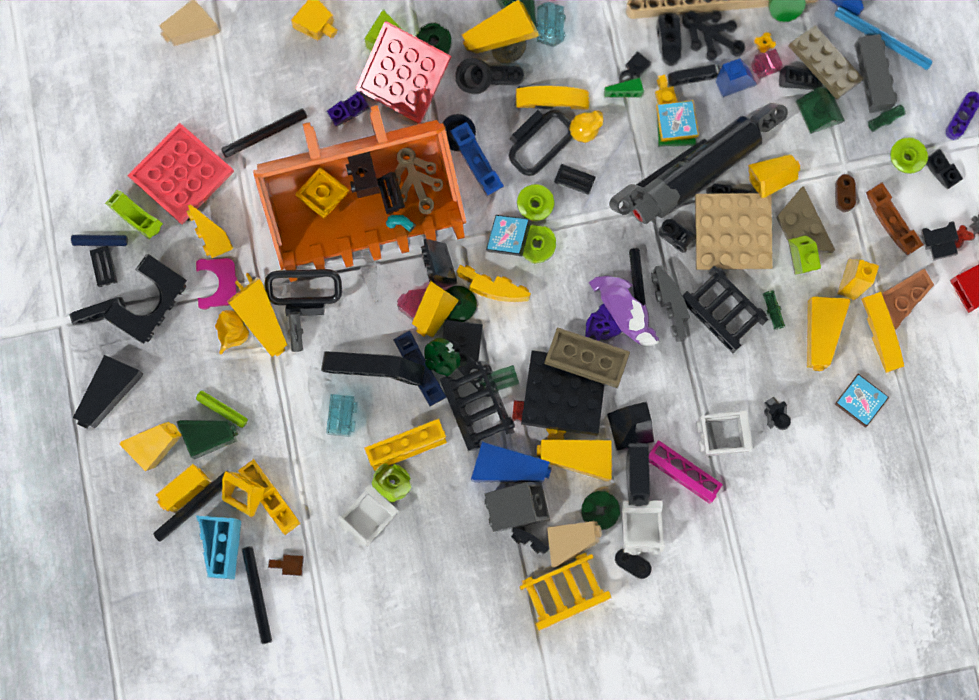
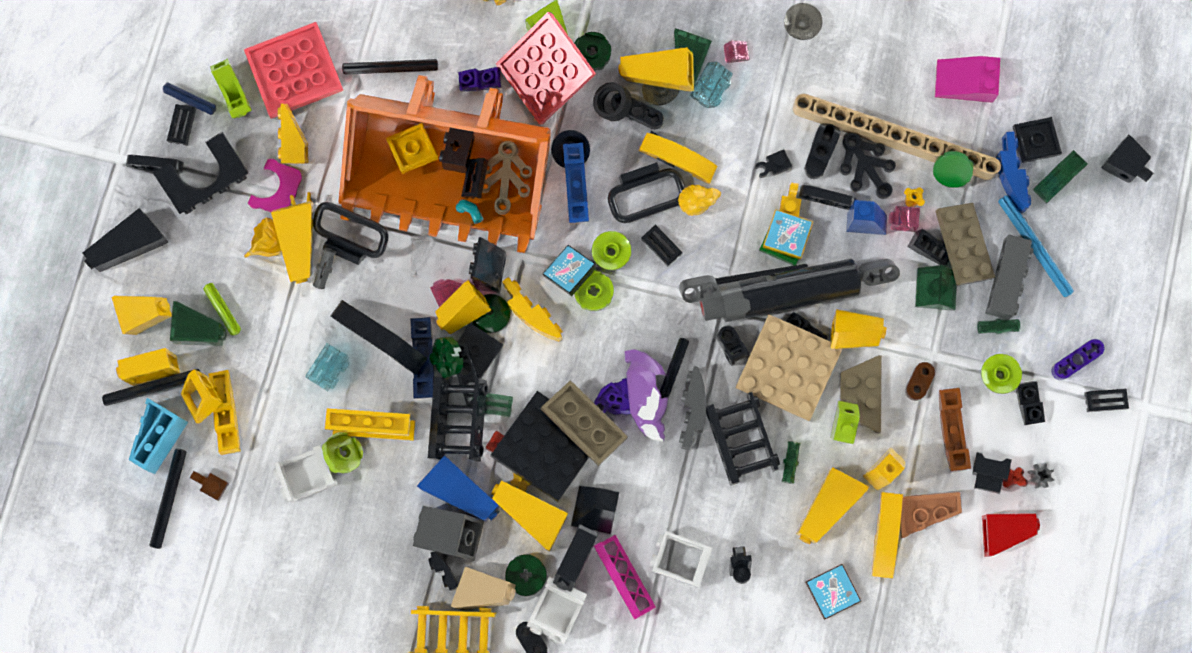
camera: 30 degrees right, 0 degrees up
(629, 88) = (755, 181): green slope -> none

